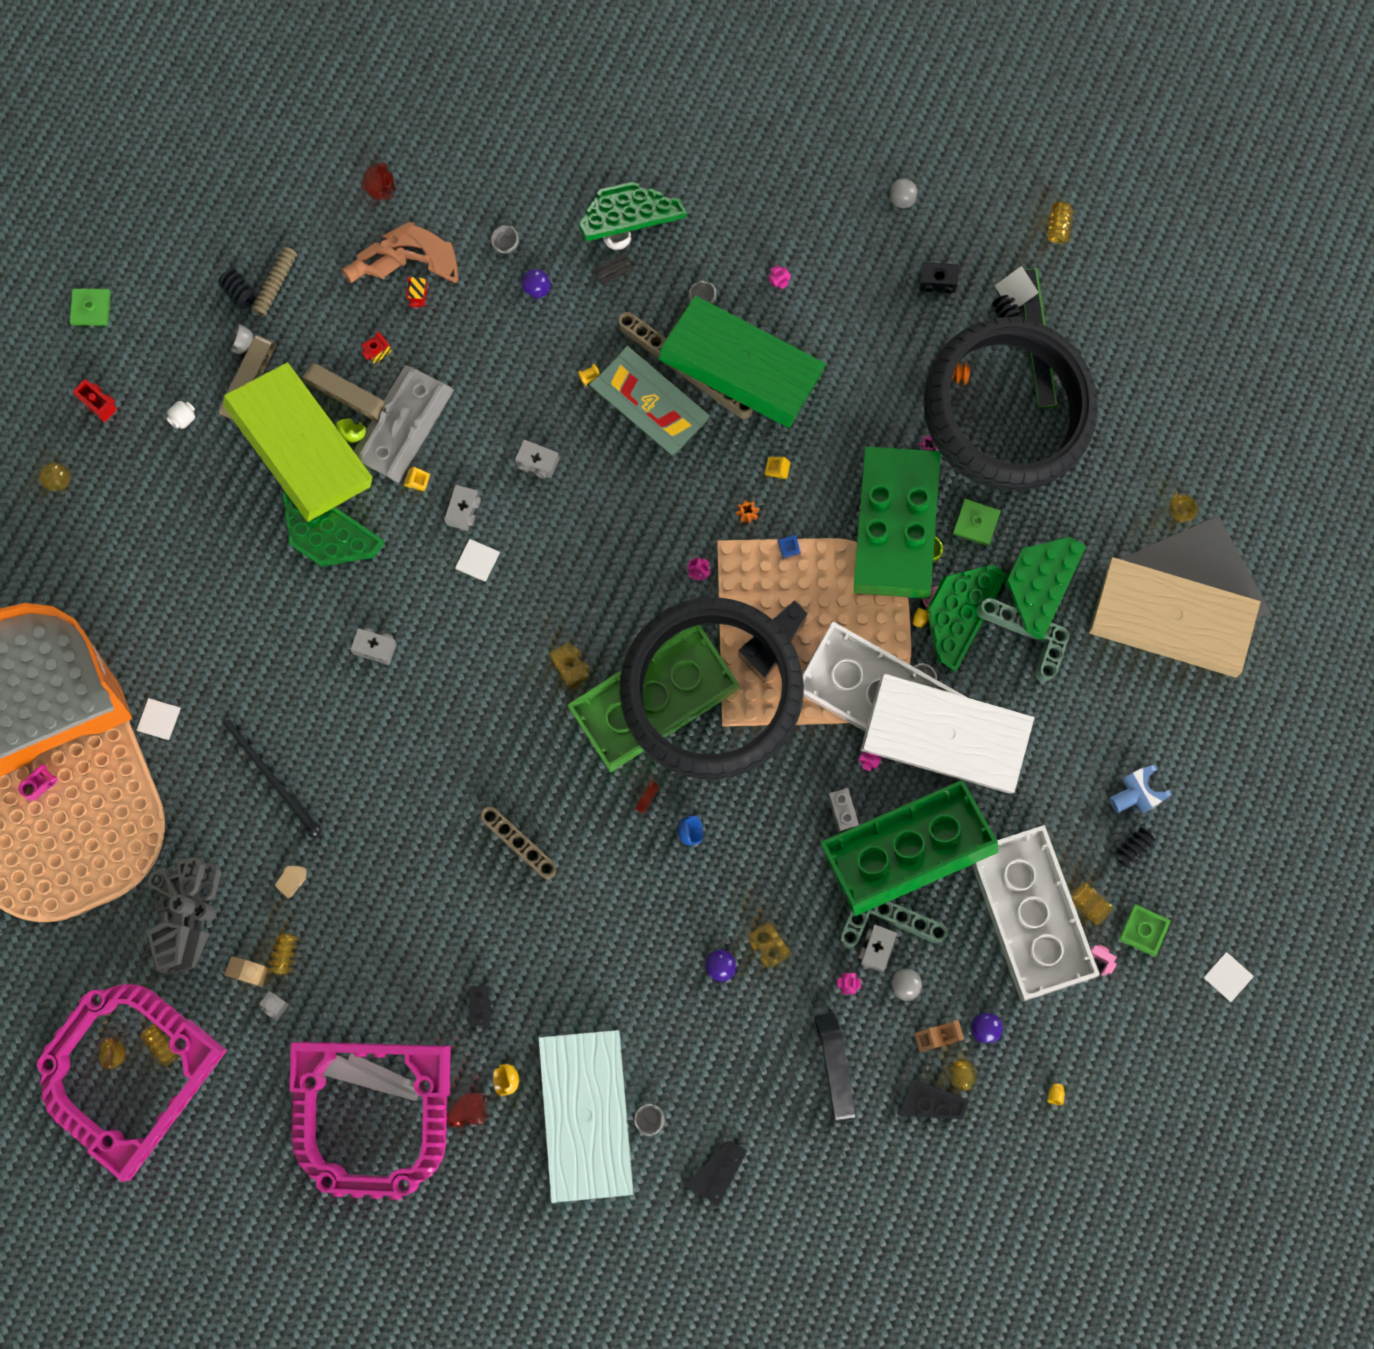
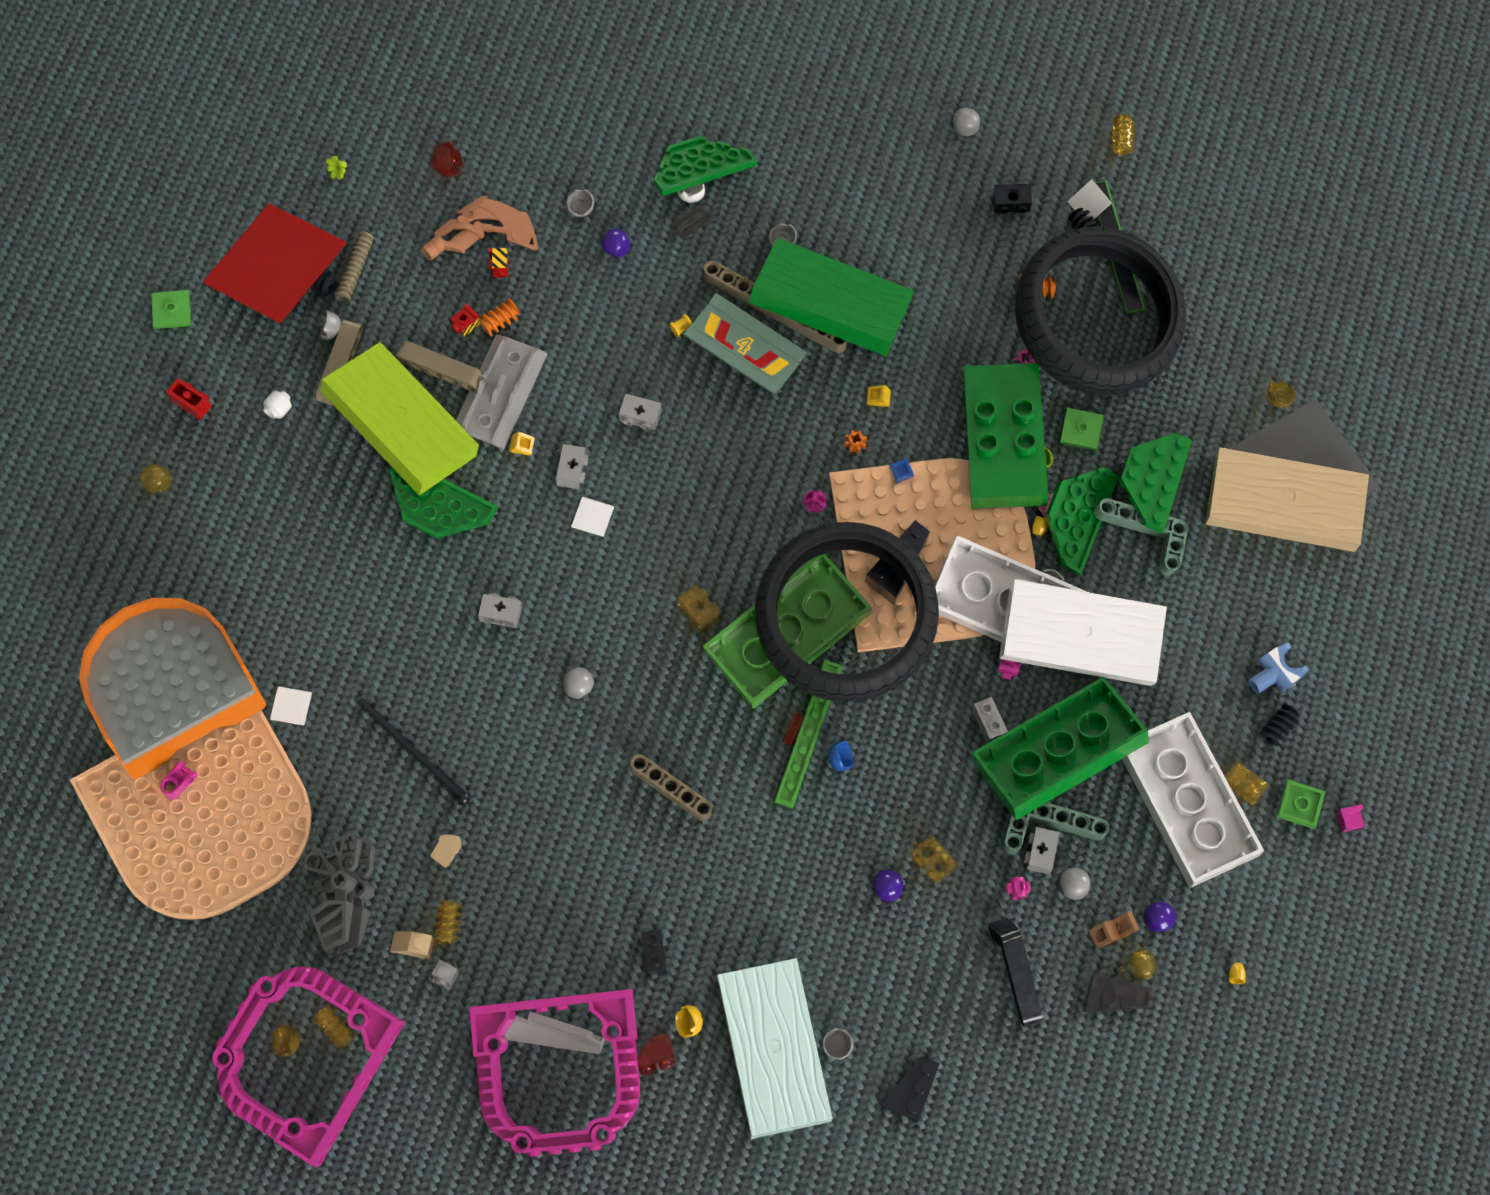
camera: 10 degrees left, 5 degrees down
(195, 270) = (274, 262): none -> red sticker
(269, 178) = (337, 167): none -> lime plant
(351, 431) = (451, 404): lime hair -> none
(410, 348) = (499, 316): none -> orange piece
(441, 727) = (578, 682): none -> light grey hair
(658, 811) = (804, 745): none -> bright green tile
(779, 277) = (856, 213): dark pink gear -> none
(1103, 955) = (1264, 833): bright pink bracket -> none
(1192, 950) = (1350, 818): none -> dark pink panel
(1228, 977) = (1389, 841): white sticker -> none

